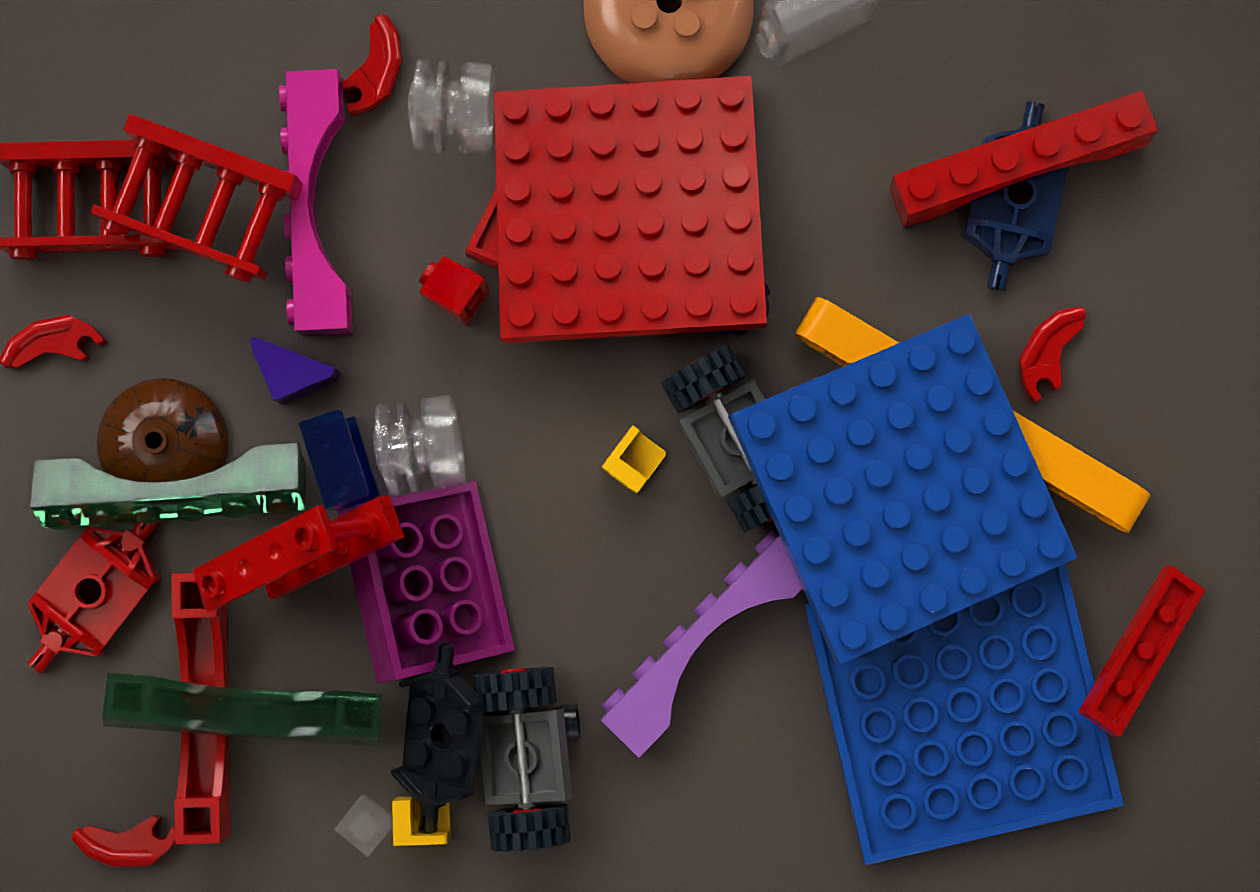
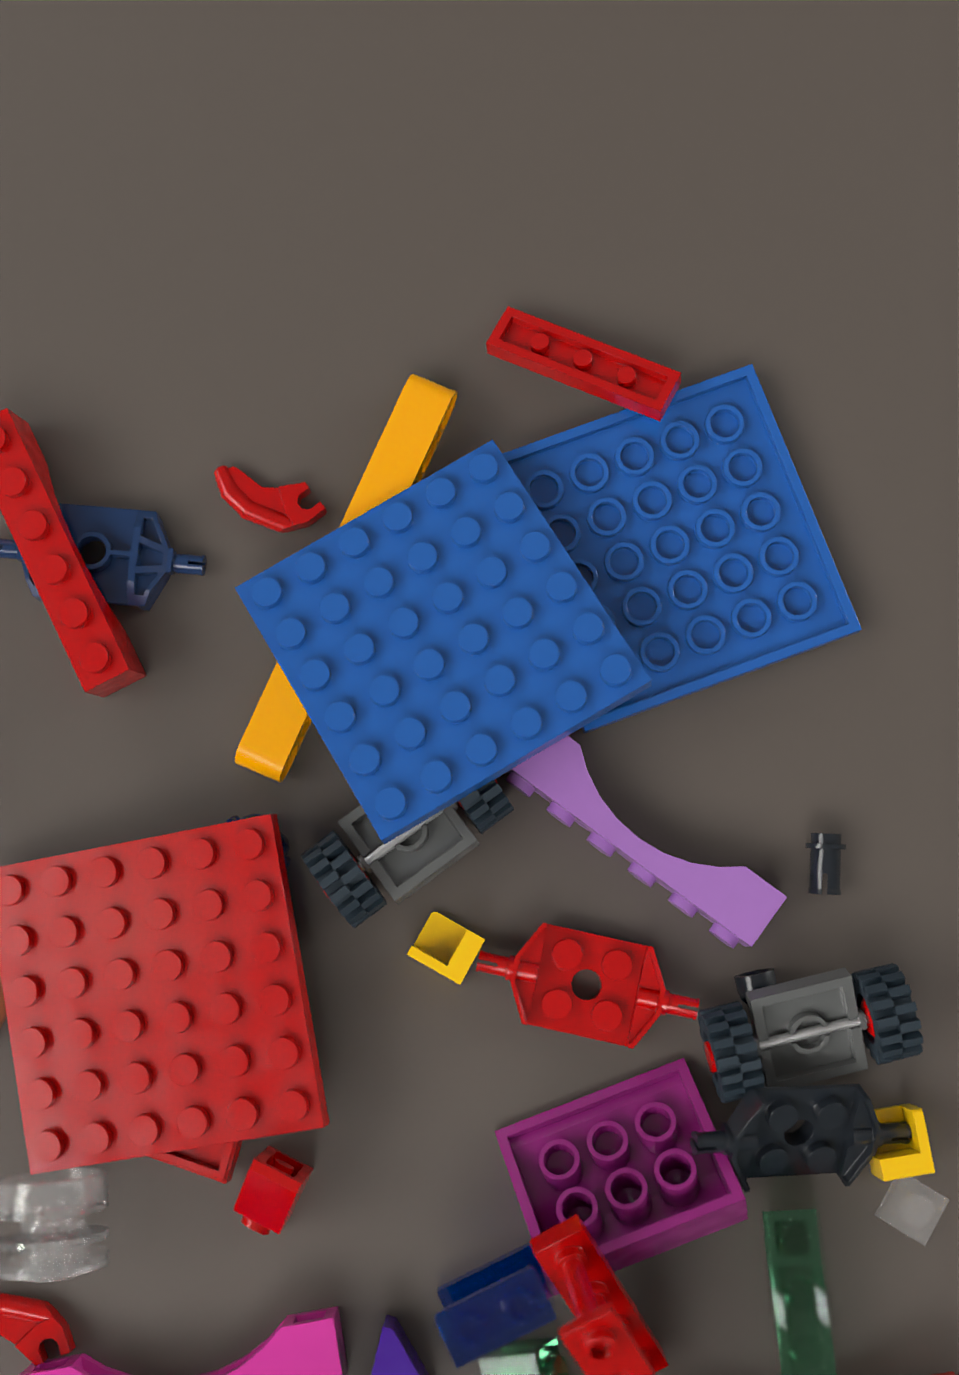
camera: 95 degrees left, 5 degrees down
(419, 445) = (466, 1219): clear wheel -> none
(579, 612) = (629, 993): none -> red plate
(666, 798) = (825, 858): none -> black pin

